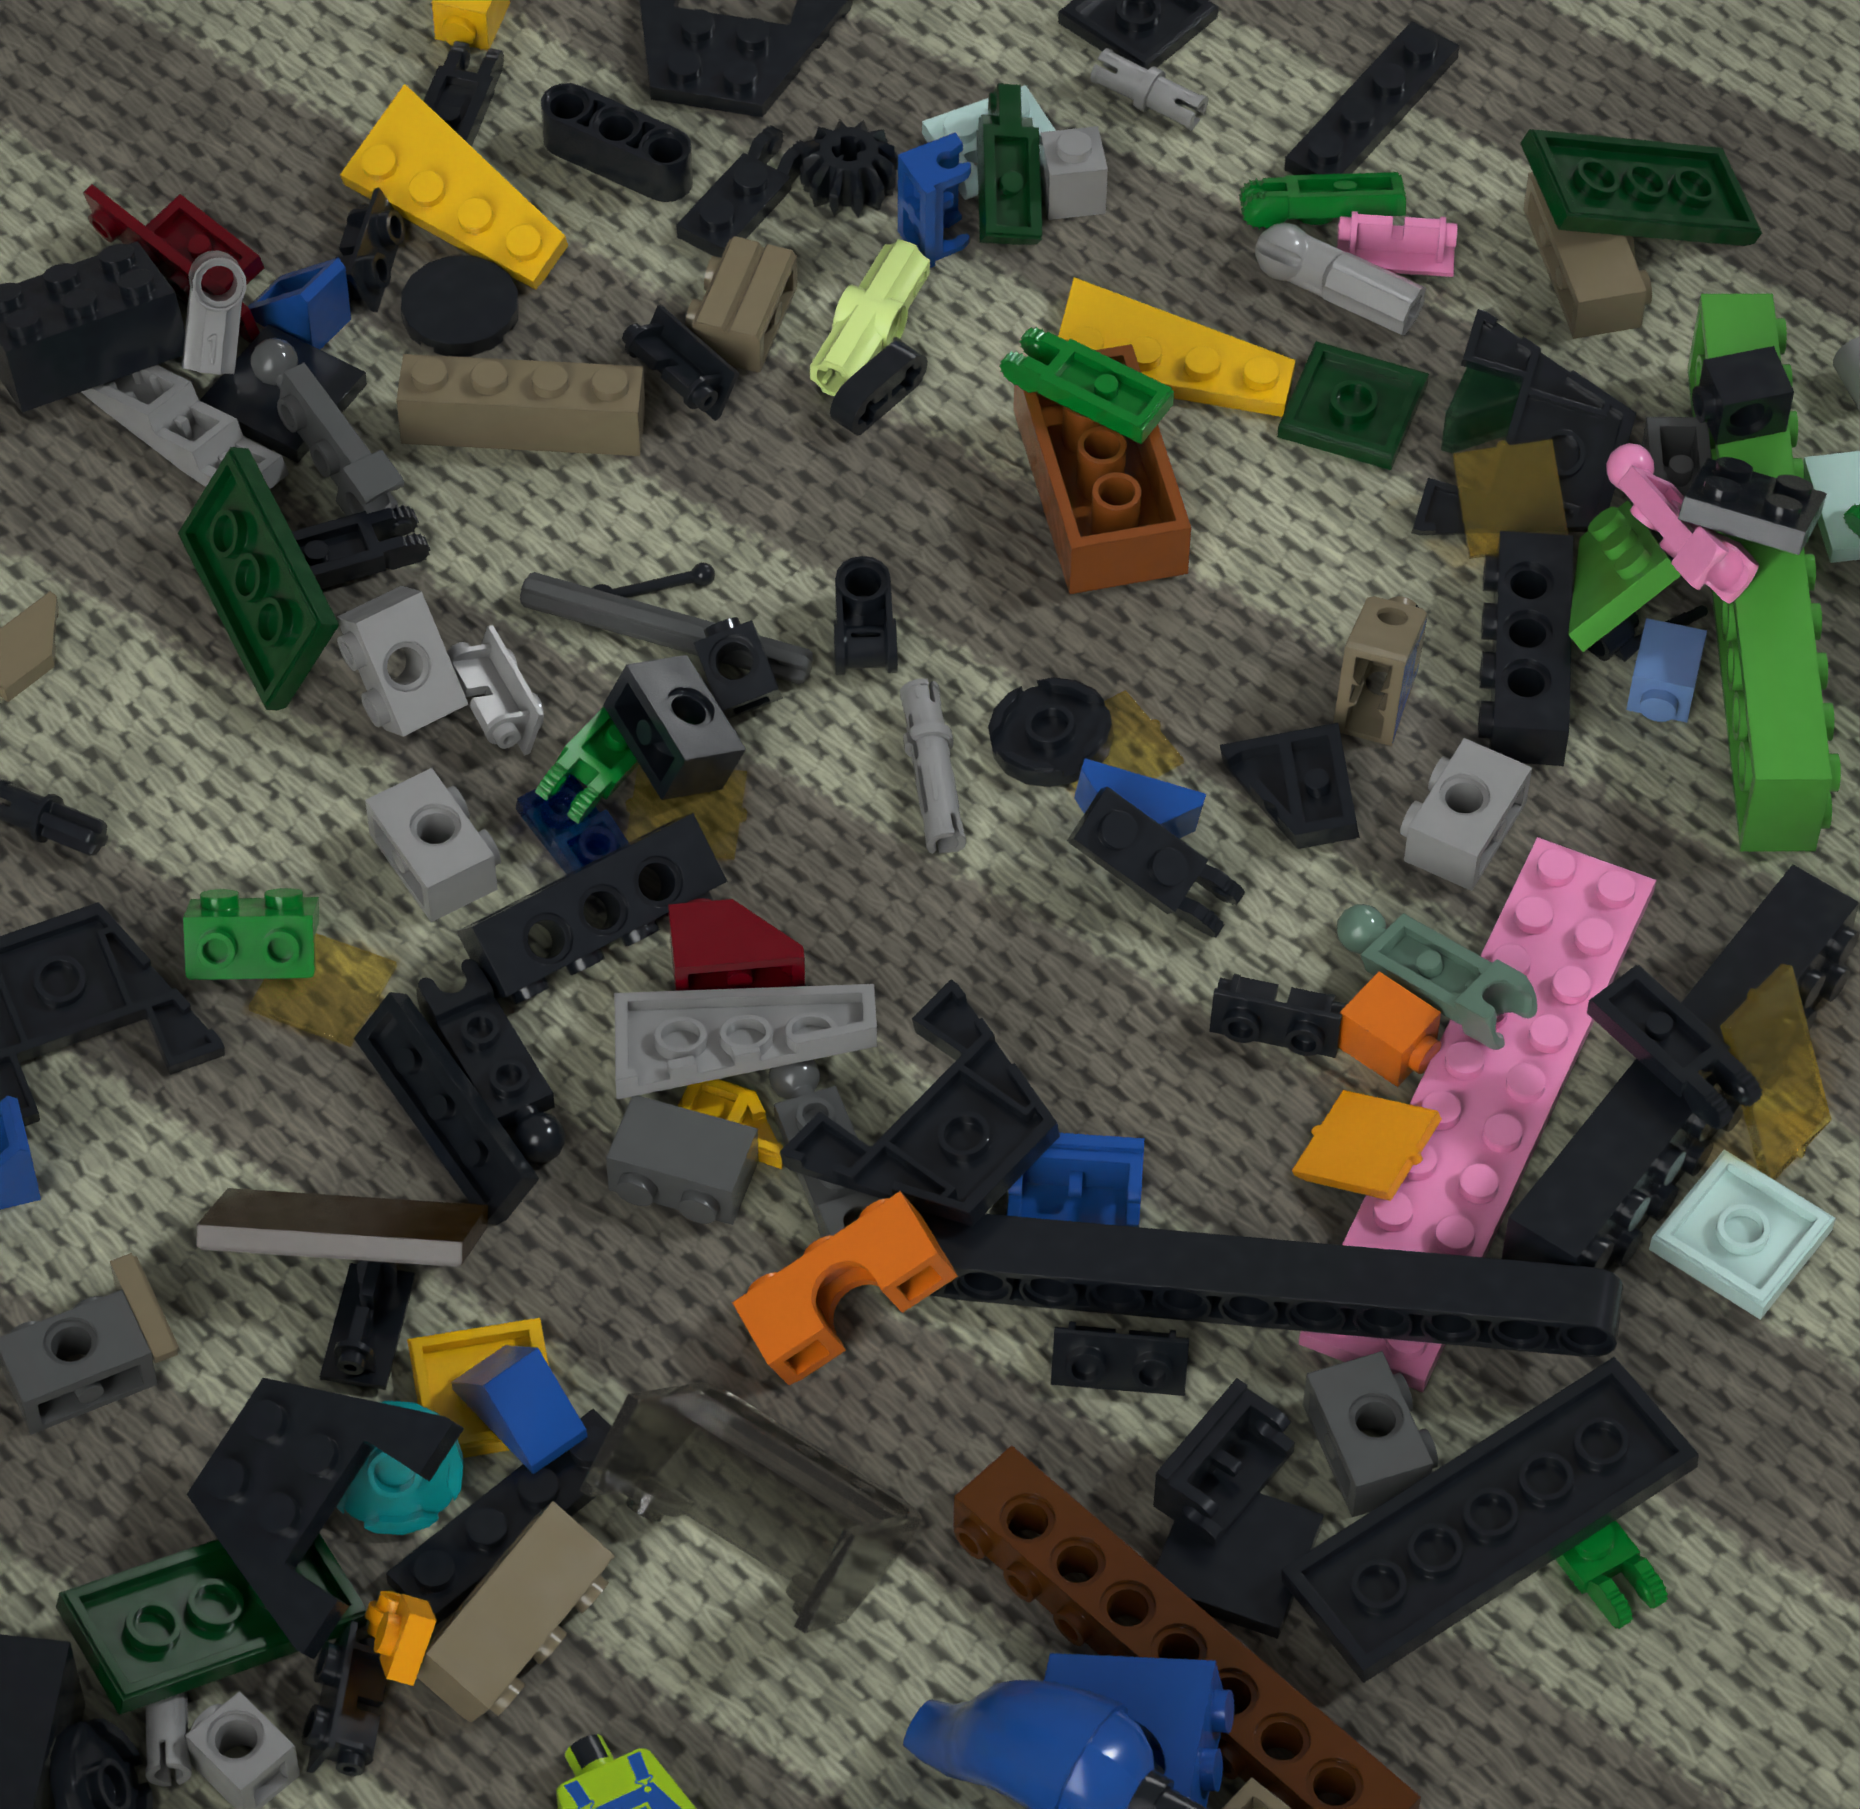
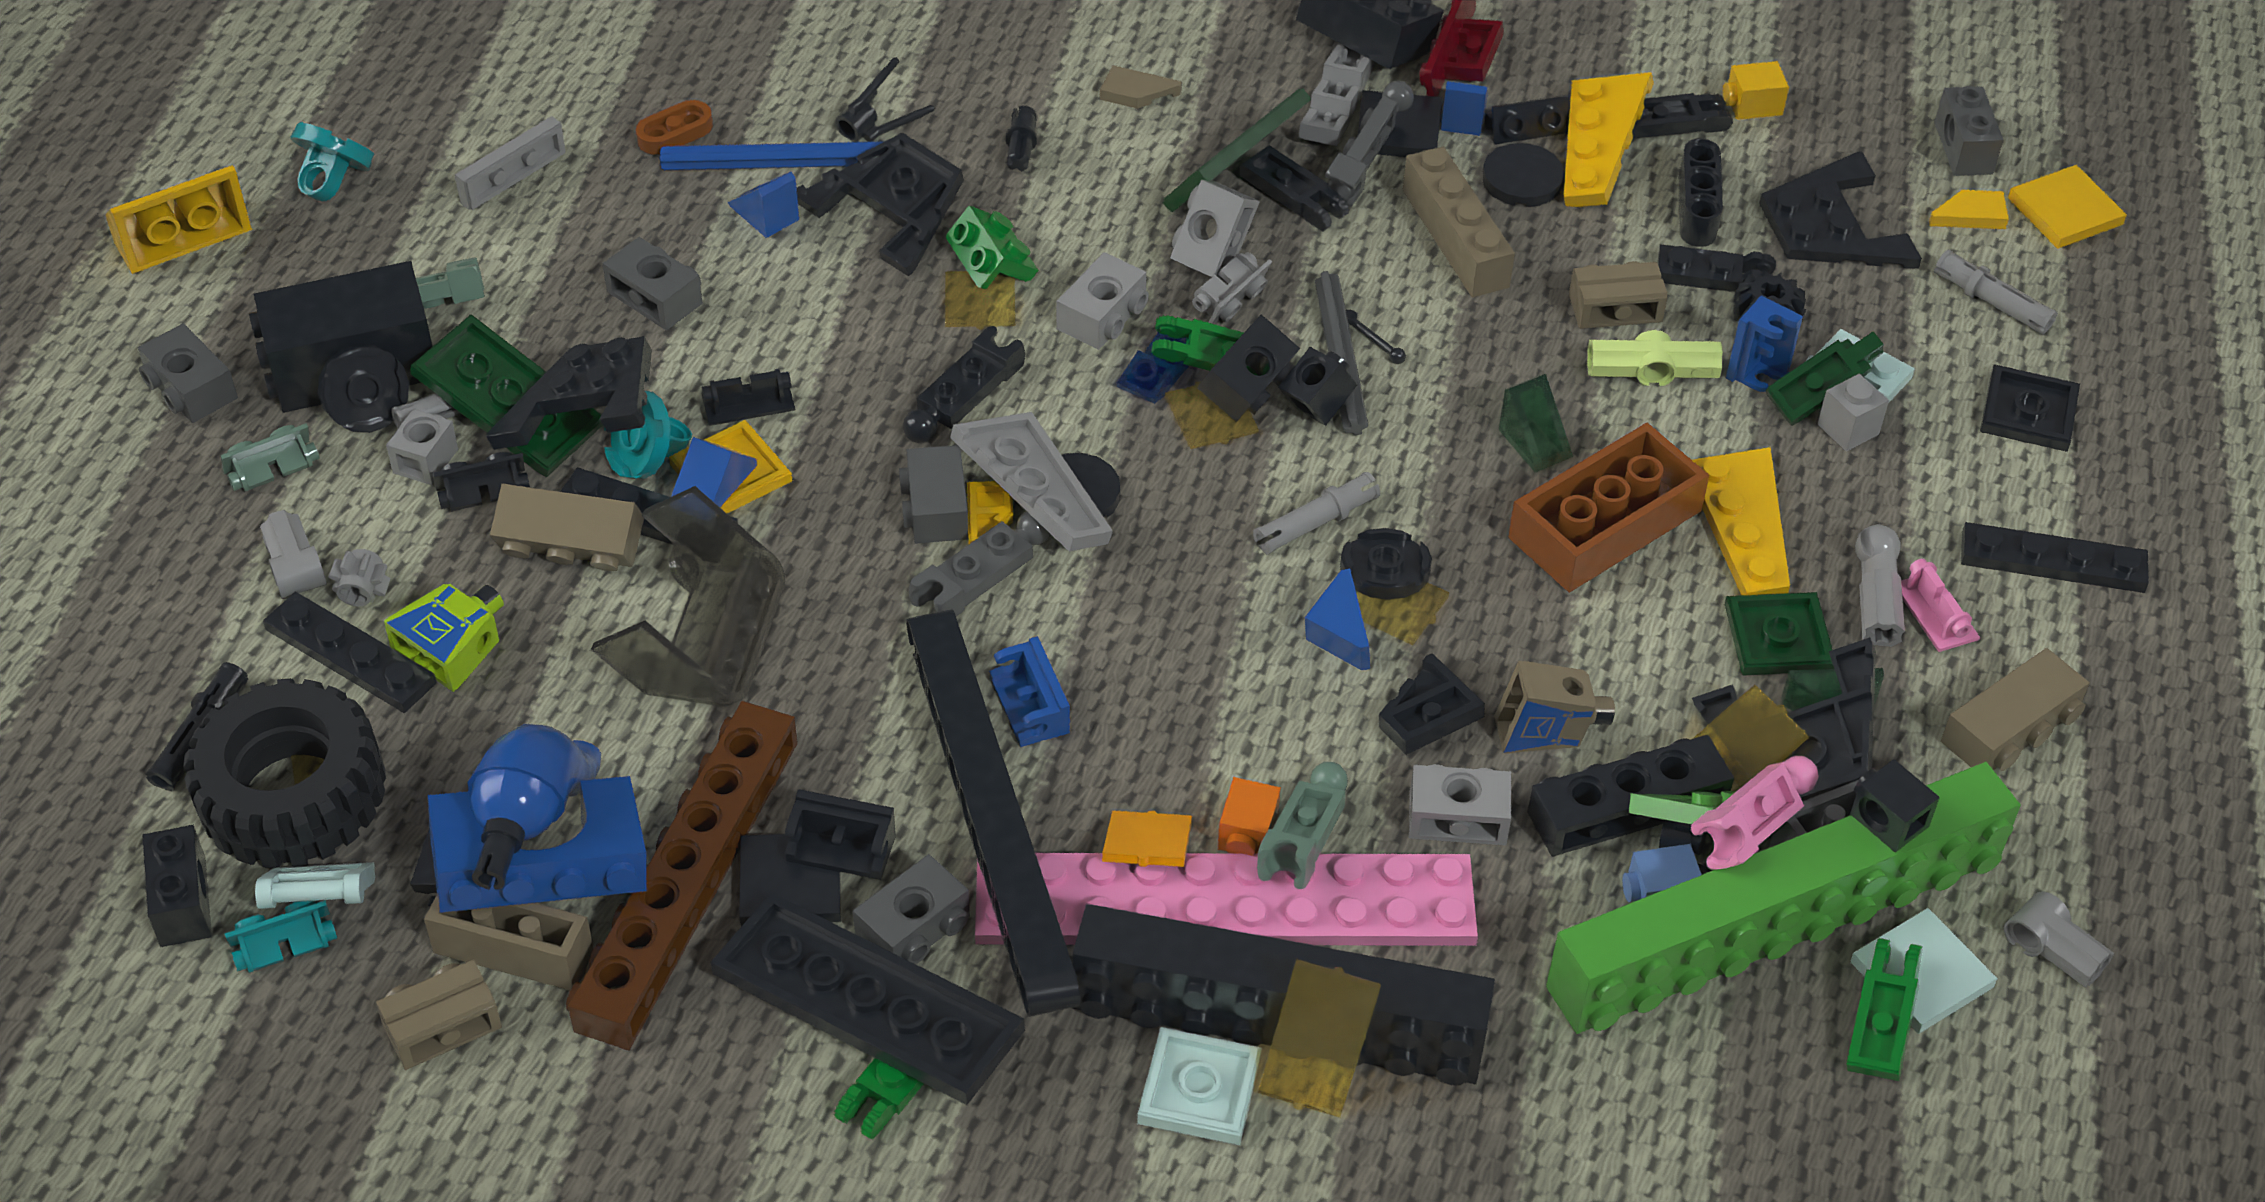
camera: 65 degrees right, 5 degrees down
(132, 1280) = (700, 296): dark tan tile -> none
(211, 319) = (1409, 54): light grey piece -> none
(342, 1227) = (795, 354): dark brown tile -> none
(401, 1633) = (524, 473): light orange plate -> none
(446, 1107) = (923, 368): black plate -> none
(500, 940) = (1040, 349): black brick -> none
(683, 361) = (1545, 275): black hinge -> none
(730, 948) = (1093, 450): dark red slope -> none
(795, 1308) = (894, 597): orange arch -> none
(864, 625) = (1408, 436): black piece -> none
(878, 387) = (1601, 381): black beam -> none
(920, 485) = (1534, 424): none -> clear green slope
(957, 1142) = (1017, 607): black wing -> none
(1088, 383) = (1648, 460): green hinge -> none
(1119, 1361) = (903, 748): black hinge -> none
(1149, 89) = (1965, 431): light grey pin -> none
(1151, 860) = (1298, 637): black hinge -> none
(1249, 1012) = (1221, 739): black hinge -> none
(1321, 197) = (1937, 544): green hinge -> none
(1640, 188) = (2088, 719): dark green tile -> none
(1673, 1045) = (1277, 943): black hinge -> none
(1753, 505) = (1788, 838): black plate -> none

